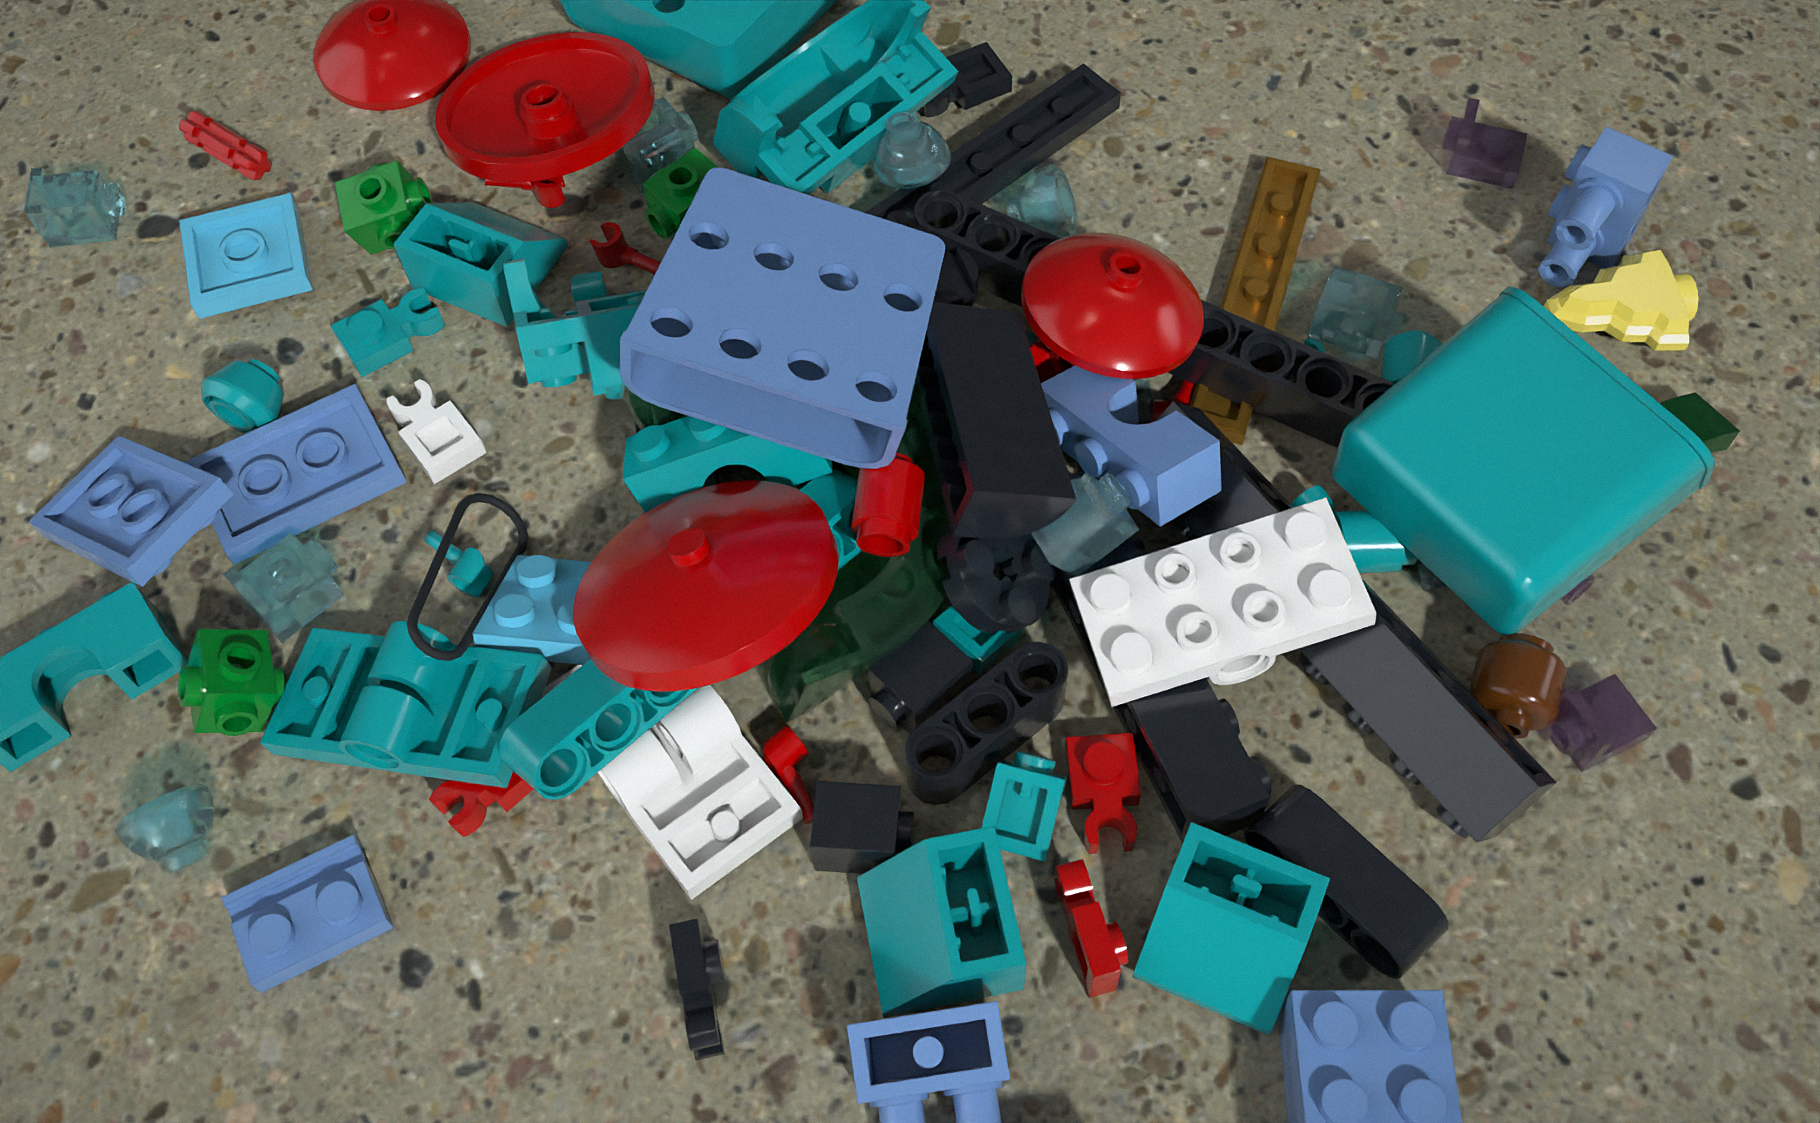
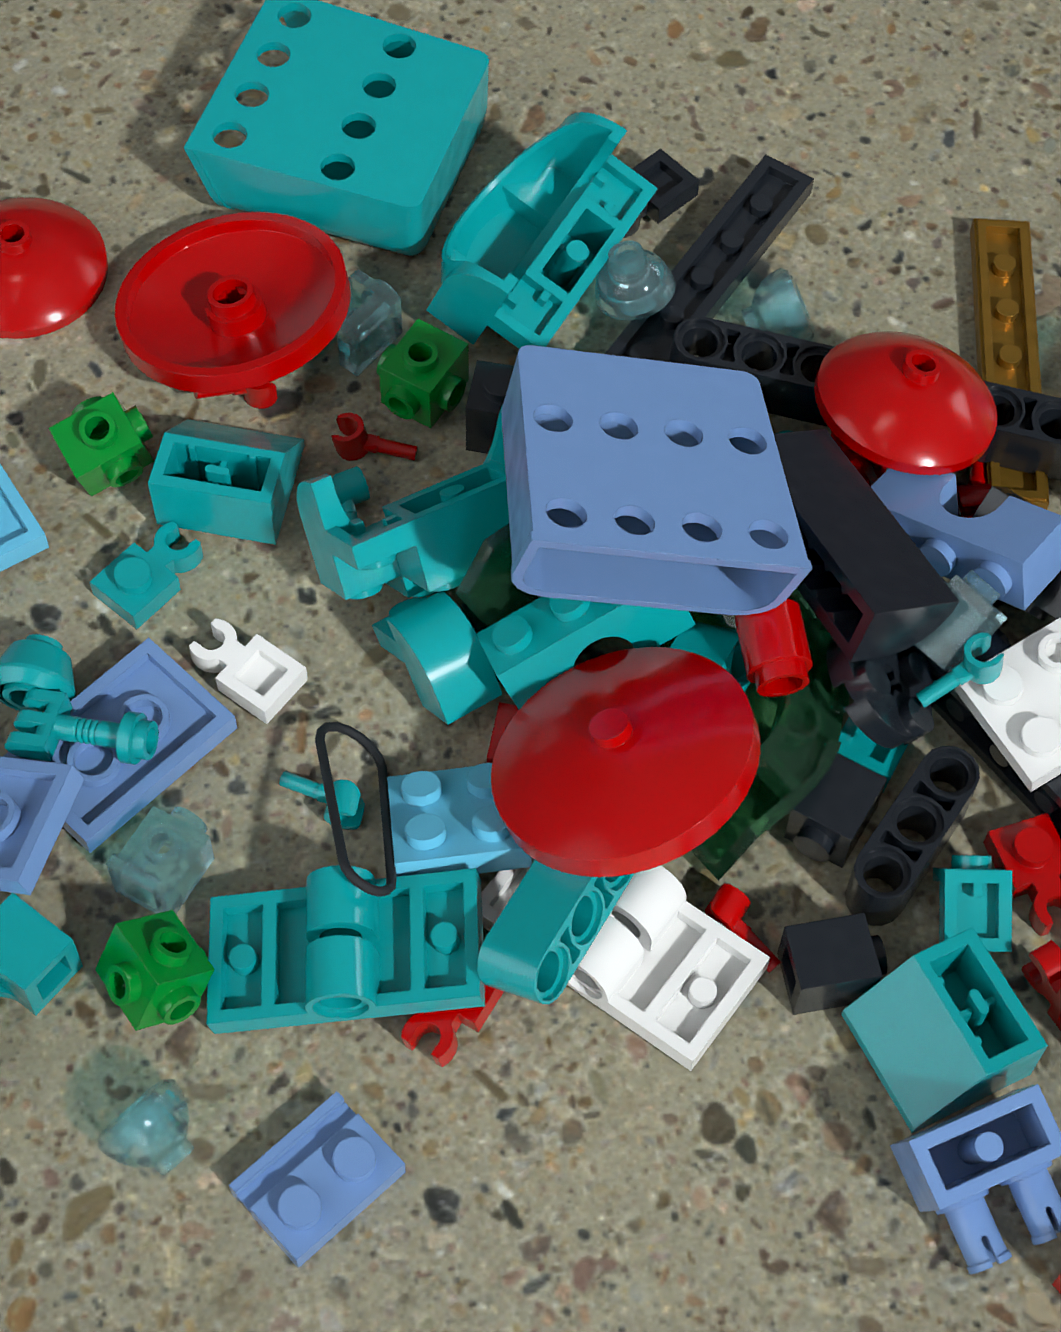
camera: 20 degrees left, 0 degrees up
(290, 467) = (50, 721): none -> teal hinge
(595, 449) = (439, 655): none -> teal brick
(698, 969) = (731, 1137): black plate -> none
(1089, 576) = (967, 670): none -> teal hand

